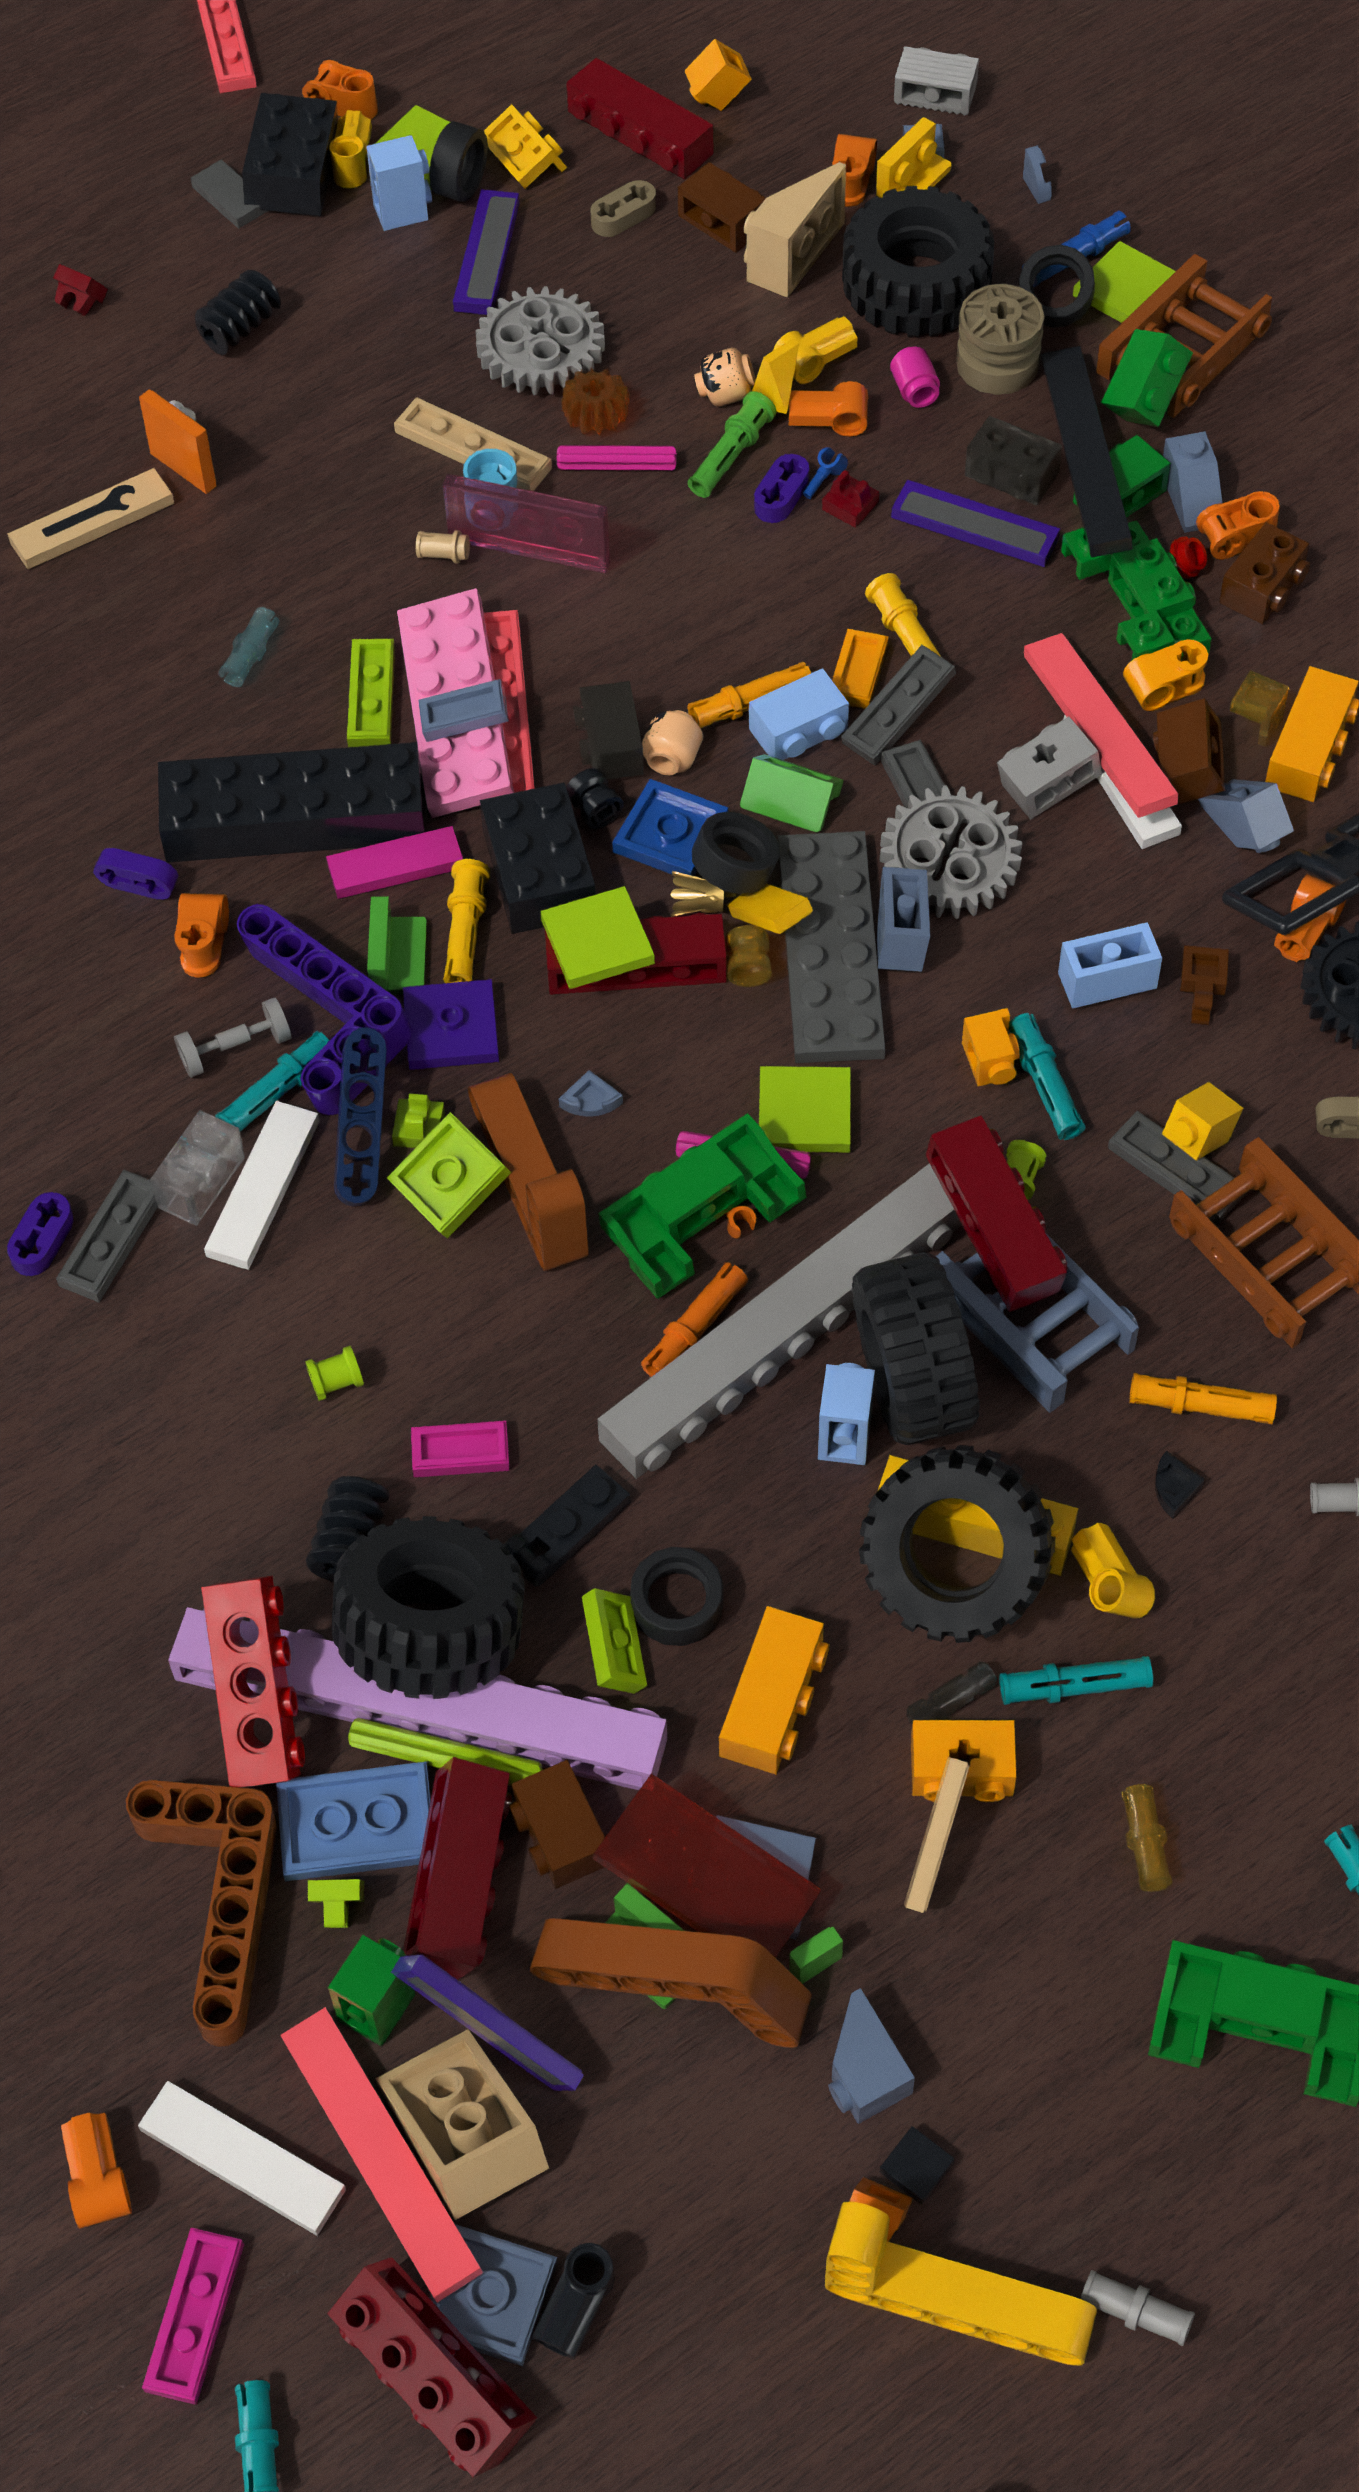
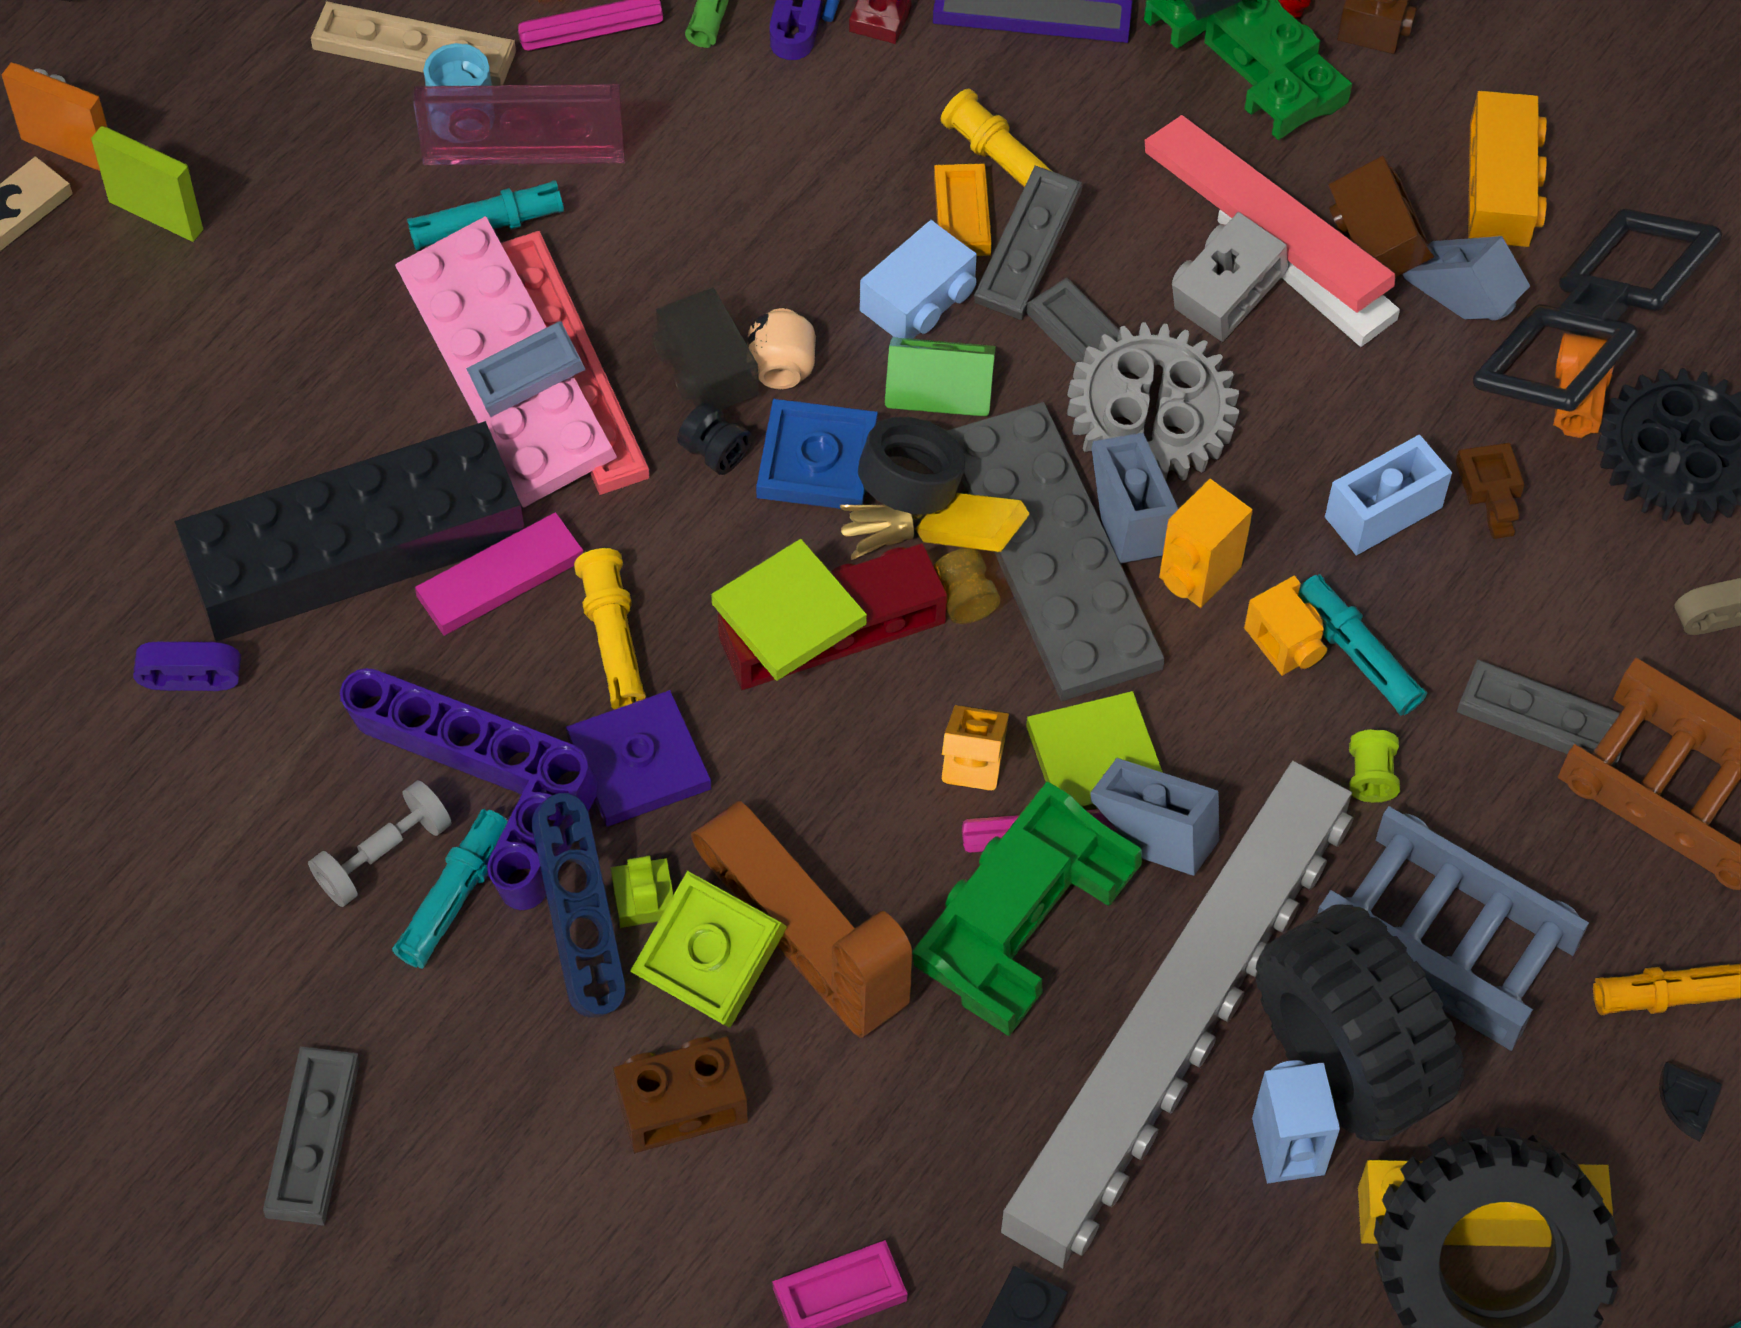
camera: 20 degrees left, 0 degrees up
(47, 1237) = (209, 1155): dark purple beam -> none
(197, 1167) = (395, 1021): clear brick -> none
(201, 932) = (293, 720): orange piece -> none
(226, 505) = (147, 183): none -> lime tile
(249, 647) = (228, 350): clear light blue pin -> none
(261, 1185) = (478, 1021): white tile -> none
(334, 1373) = (655, 1238): lime bush -> none
(371, 692) = (397, 372): lime tile -> none
(390, 1275) = (680, 1093): none -> reddish brown brick
(395, 948) = (540, 680): bright green panel -> none
(442, 545) = (422, 173): tan pin -> none
(490, 587) = (502, 210): none -> teal pin
(535, 853) = (673, 525): black brick -> none
(590, 1097) = (838, 805): sand blue tile -> none
(698, 1317) = (1059, 1074): orange pin -> none
(709, 1078) = (974, 747): none -> light orange slope
(734, 701) = (837, 280): light orange pin -> none
(740, 1213) = (1073, 902): orange hand -> none
(832, 1163) = (1160, 813): none -> sand blue slope
(944, 967) = (1205, 543): none -> light orange brick
(996, 1213) = (1384, 829): dark red brick -> none
(1112, 1578) = (1661, 1230): yellow piece -> none
(1163, 677) = (1318, 135): light orange piece -> none
(1202, 1121) = (1560, 654): yellow brick -> none
(1262, 702) = (1438, 144): clear yellow panel -> none

